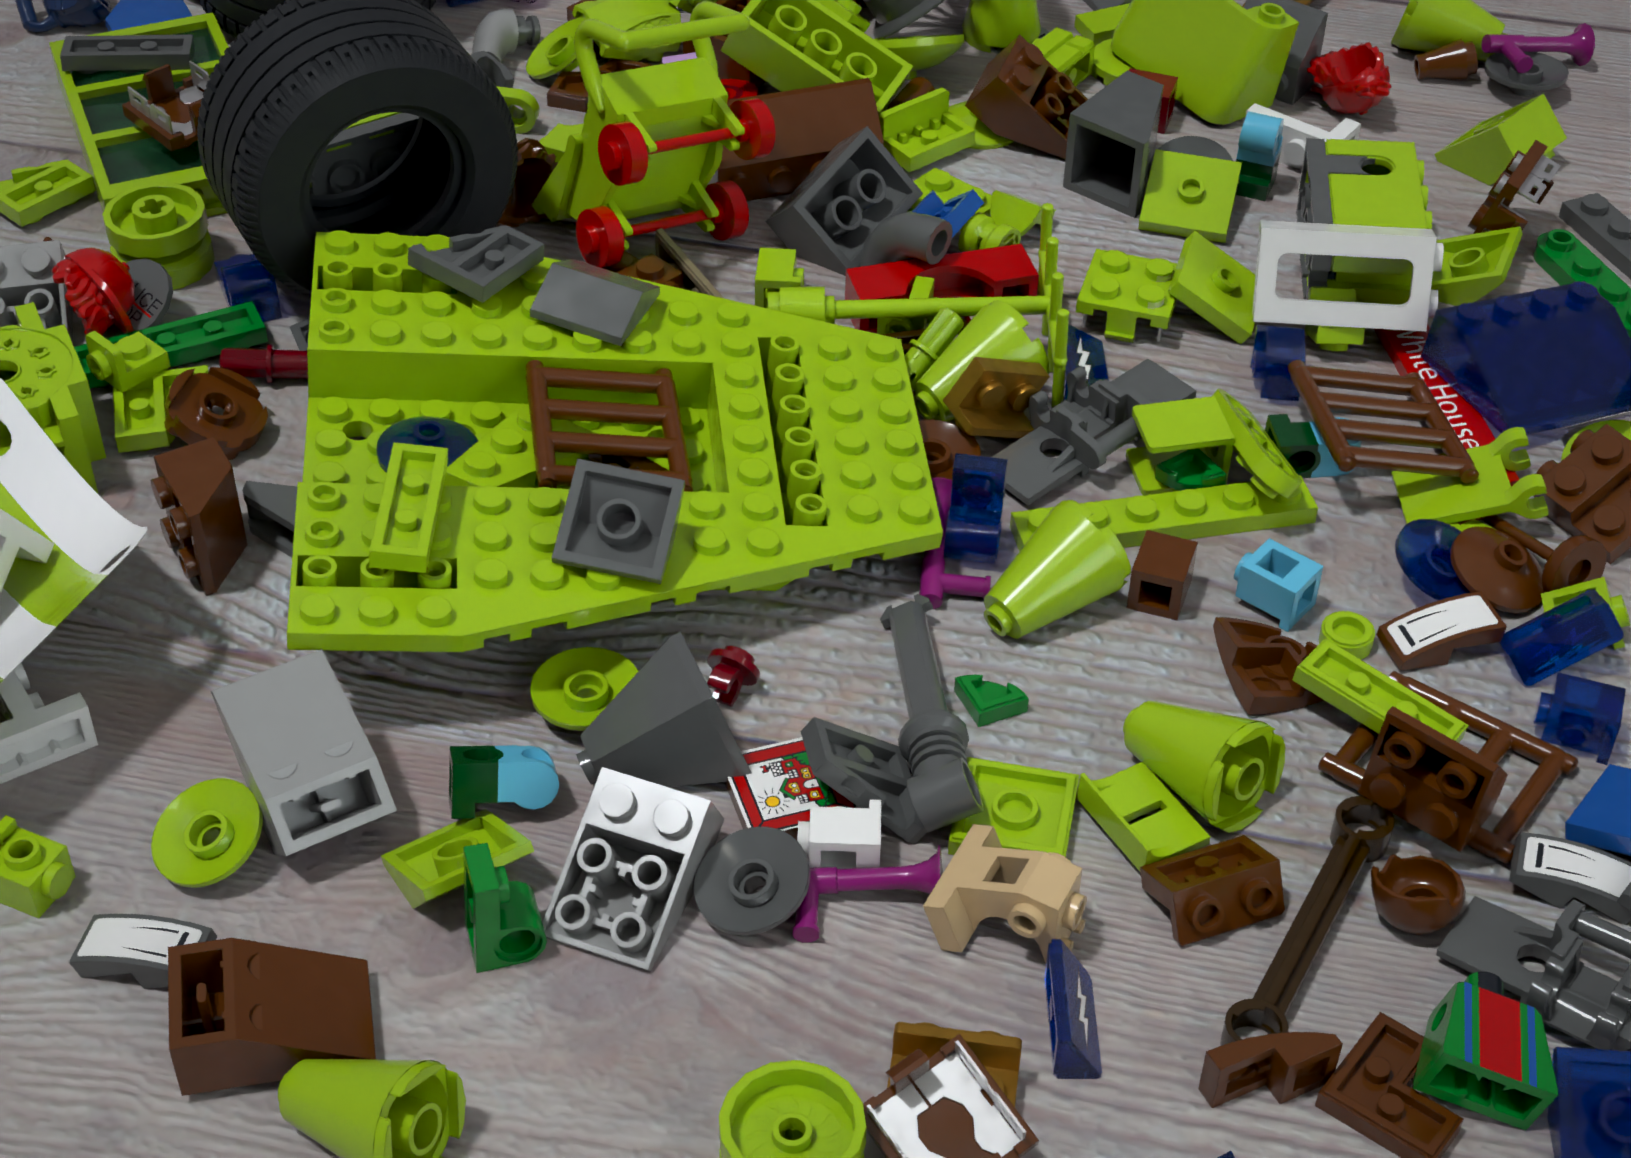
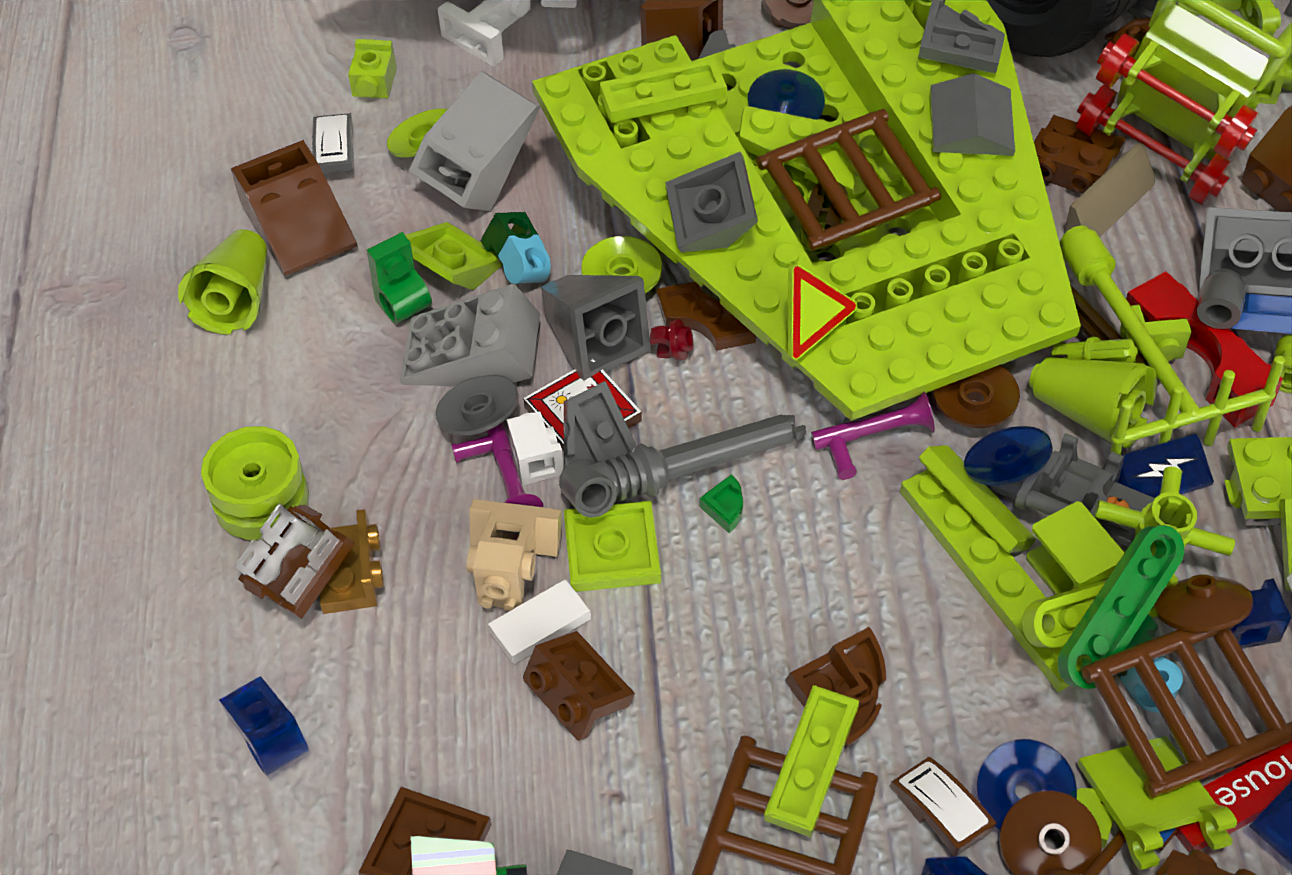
camera: 75 degrees right, 10 degrees up
(708, 627) = (703, 315): none -> reddish brown tile
(775, 270) = (1139, 240): lime brick -> none
(814, 486) = (812, 310): none -> piece
(976, 508) = (902, 437): clear blue plate -> none
(994, 395) = (1048, 404): pearl gold bracket -> none
(1038, 429) = (1008, 455): none -> clear blue dish
(1056, 572) = (862, 503): lime cone -> none
(1071, 1015) = (426, 617): clear blue slope -> none
(1079, 491) = (977, 499): none -> lime tile
(1113, 914) = (539, 620): none -> white tile
(1134, 793) = (646, 606): lime piece -> none
(1161, 575) = (909, 580): reddish brown brick -> none
(1182, 364) = (1170, 510): none -> lime bar
(1190, 471) = (1052, 577): green tile -> none
(1208, 759) = (690, 648): lime cone -> none
(1264, 402) = (1122, 601): none -> green plate
(1276, 373) = (1204, 604): none -> reddish brown dish
(1278, 582) = (936, 666): medium azure brick -> none
(1282, 1061) = (410, 750): reddish brown slope -> none
(1315, 917) = (561, 757): dark brown piece -> none
(1349, 632) = (910, 736): lime tile -> none
(1417, 893) = (611, 819): reddish brown hair -> none
(1431, 780) = (713, 796): reddish brown slope -> none

